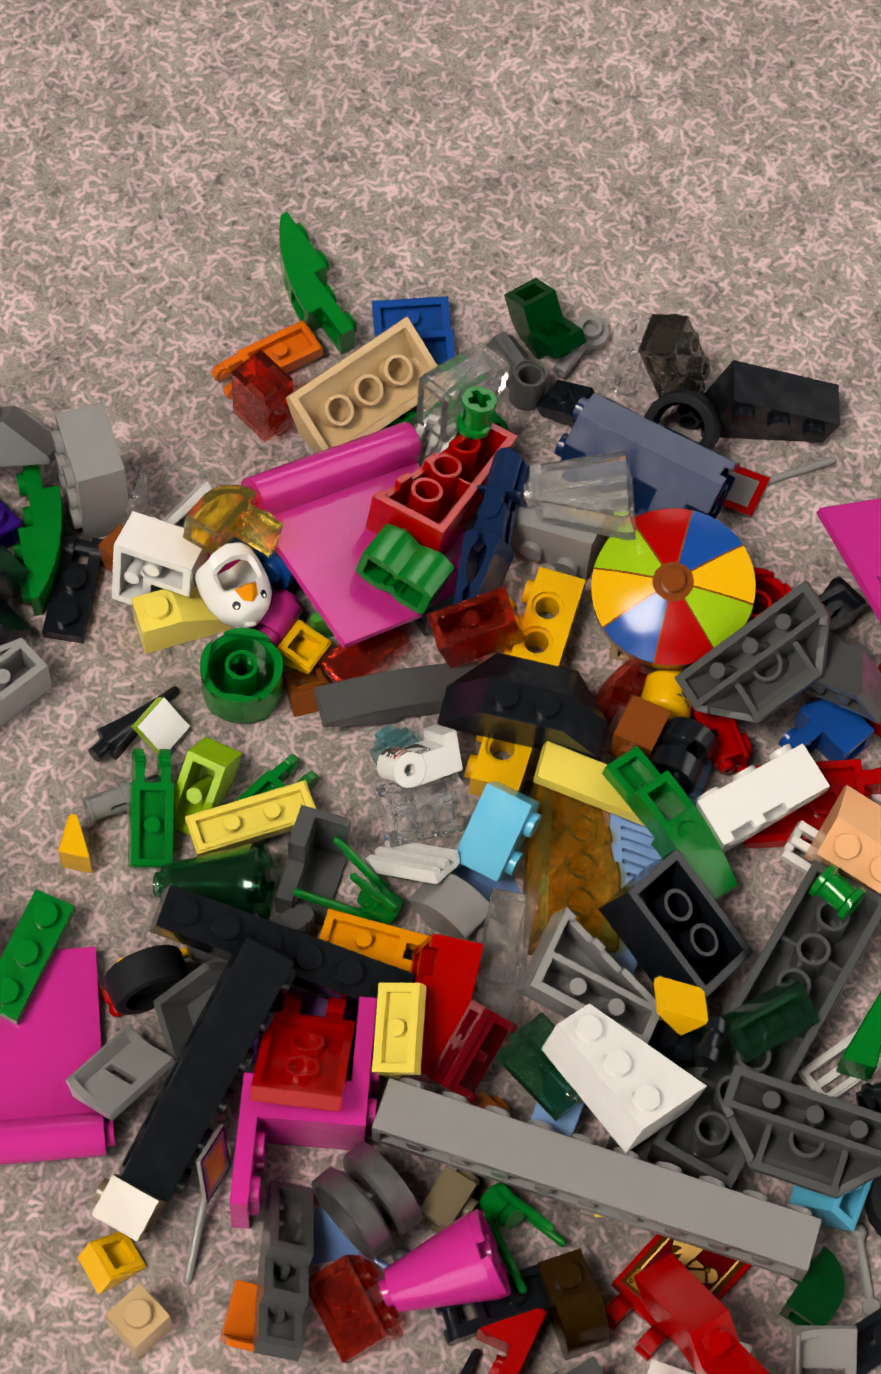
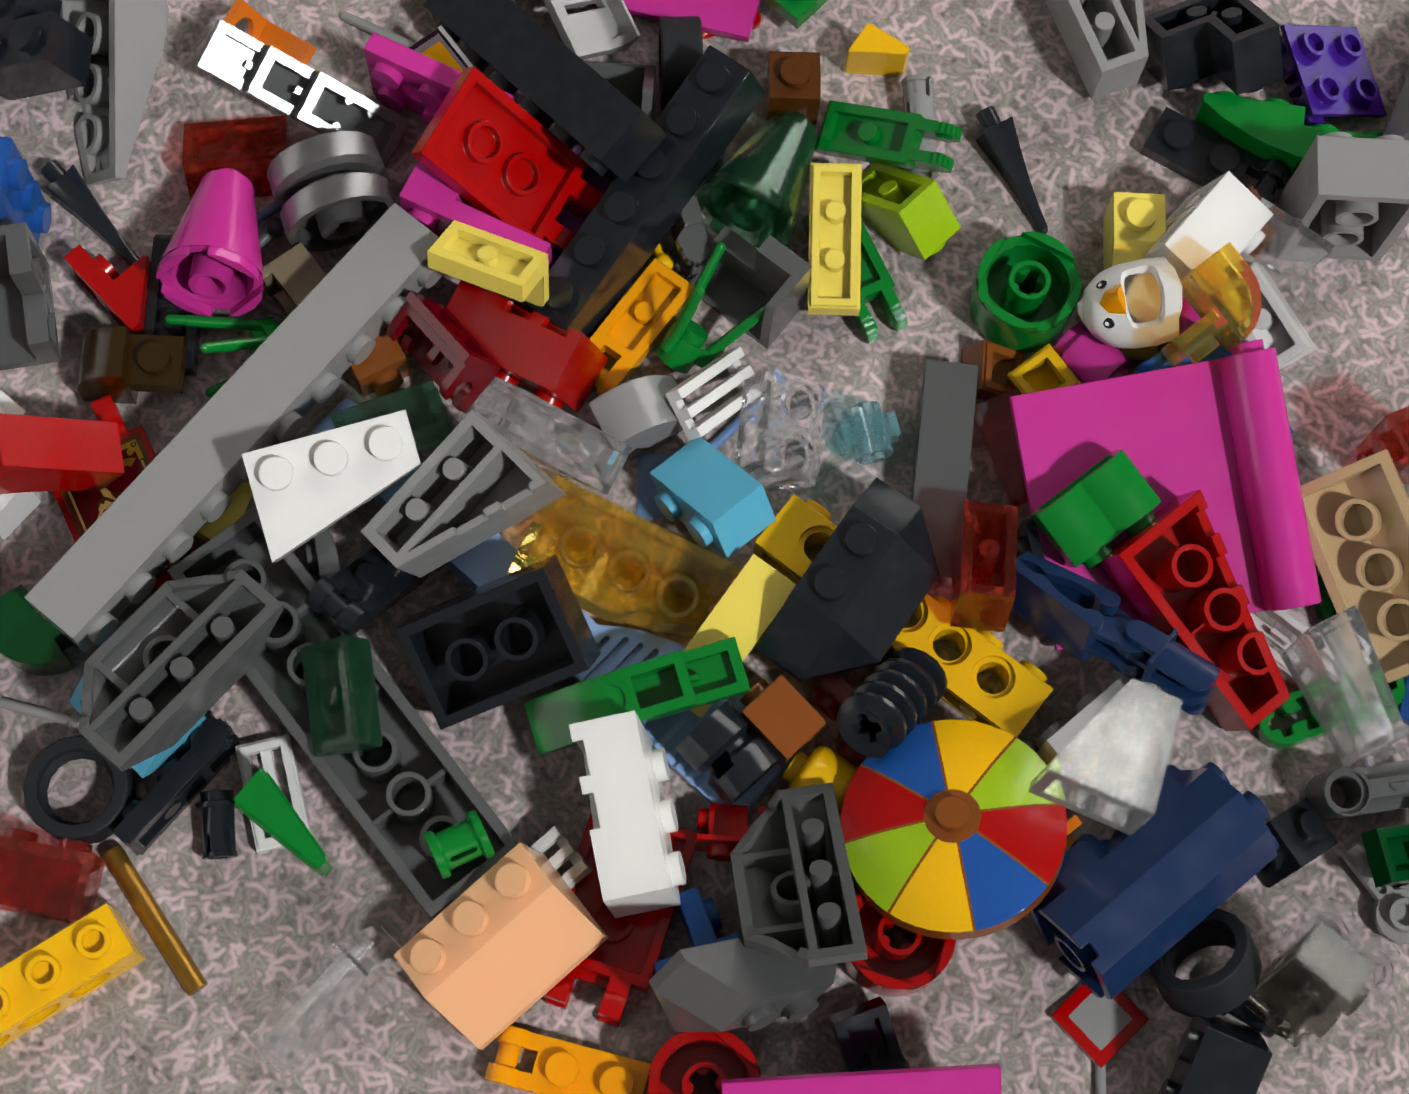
camera: 110 degrees right, 10 degrees up
(130, 894) = (793, 83): none -> reddish brown brick
(160, 725) = (995, 190): white tile -> none
(422, 761) = (831, 437): white leg -> none
(477, 407) = (1309, 673): green bush -> none
(603, 654) = (891, 701): none -> black piece
(680, 1004) = (391, 586): yellow slope -> none

